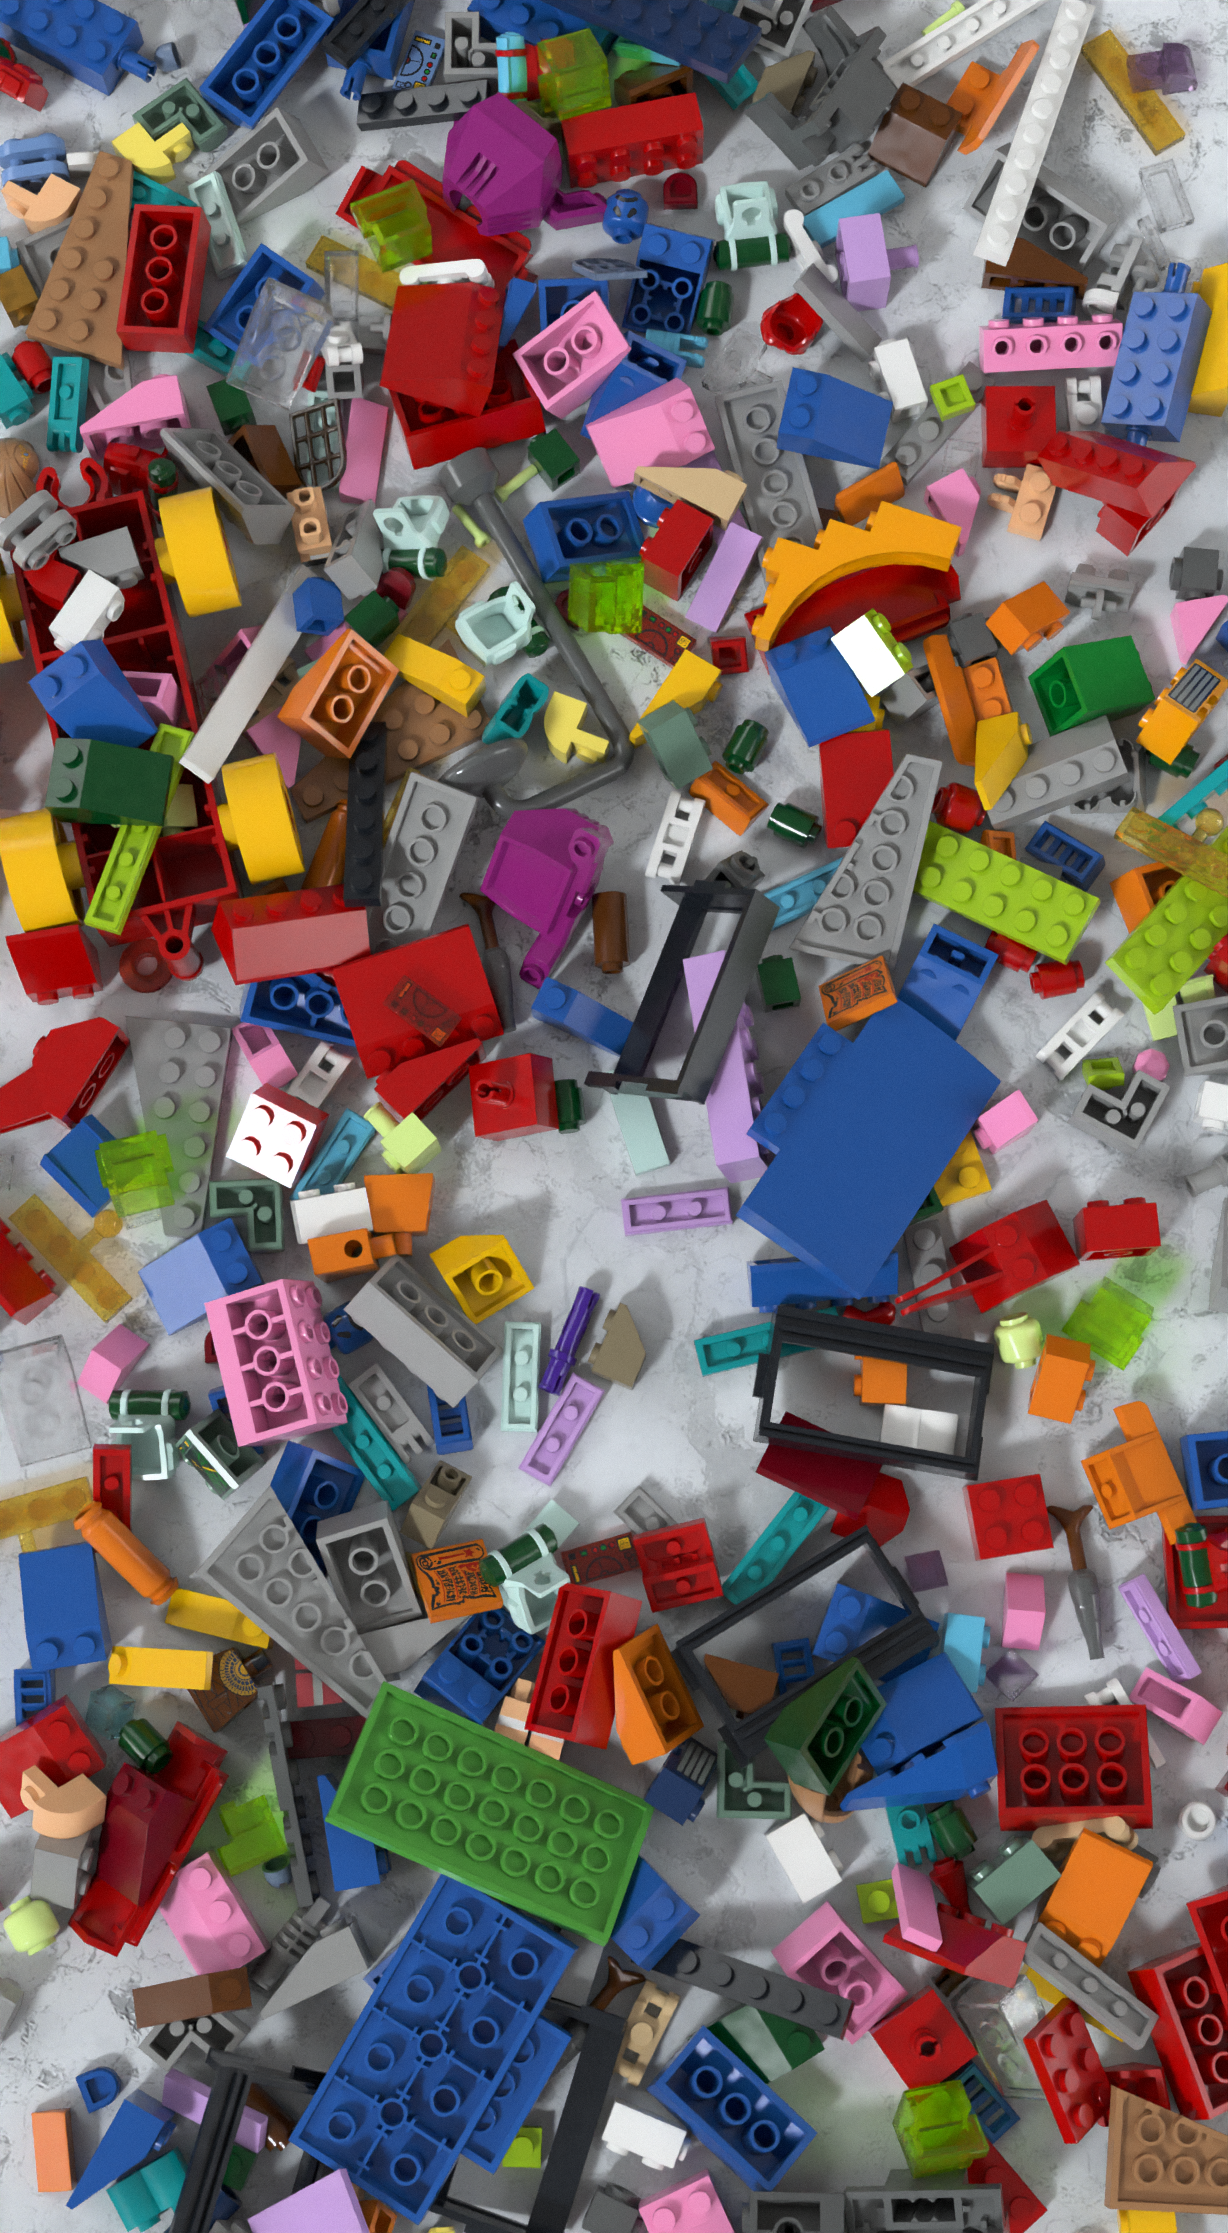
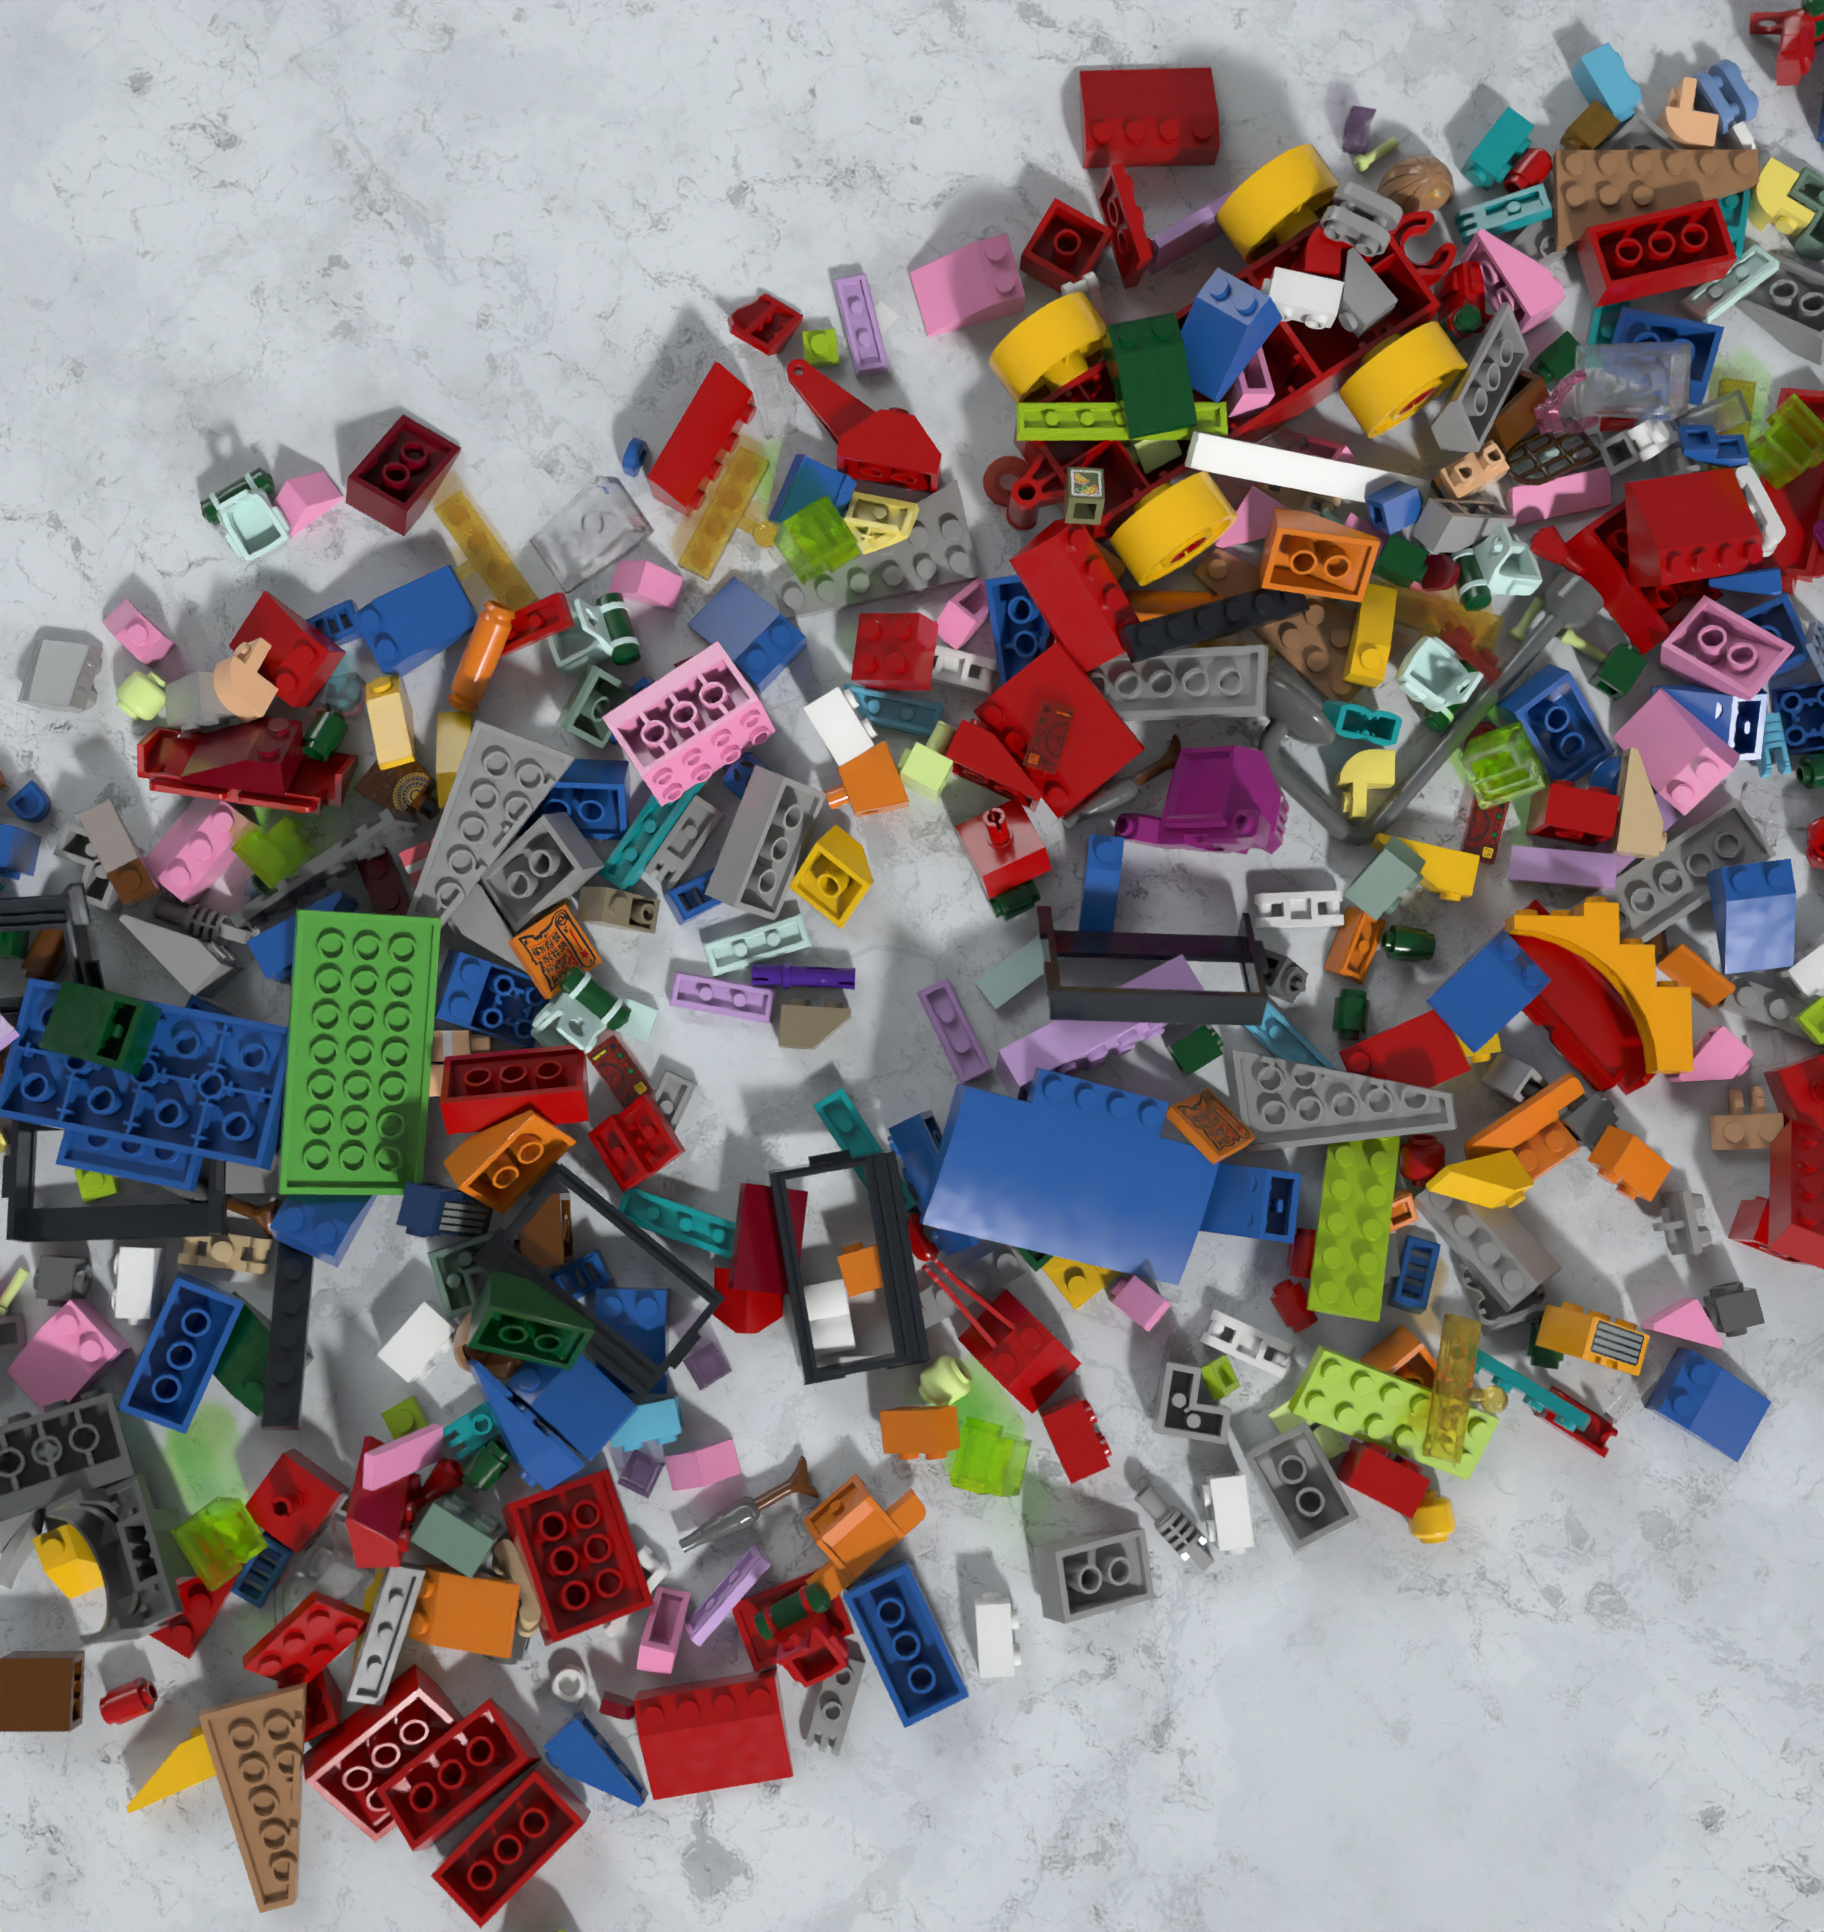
camera: 65 degrees right, 5 degrees up
(56, 964) = (978, 399): red slope -> none
(138, 1104) = (879, 520): none -> light yellow slope
(190, 2100) = (43, 881): lavender tile -> none
(202, 888) = (1084, 495): none -> olive brick
(261, 1203) = (829, 660): sand green brick -> none
(278, 429) = (1549, 411): none -> clear pink helmet
(334, 1258) = (805, 743): orange torso -> none
(369, 2074) = (101, 1027): none -> dark green slope
(375, 292) = (1702, 445): none -> blue slope
(410, 476) = (1550, 546): none -> red cone
(471, 591) = (1461, 640): none -> clear red plate
(610, 931) = (1189, 881): reddish brown brick -> none
(729, 654) = (1491, 898): red slope -> none
(837, 1960) = (335, 1405): bright pink slope -> none
(873, 651) = (1539, 1029): slope -> none
(1007, 1517) = (779, 1424): red brick -> none
(1090, 683) = (1587, 1244): green slope -> none
(1152, 1063) = (1243, 1419): bright pink tile -> none

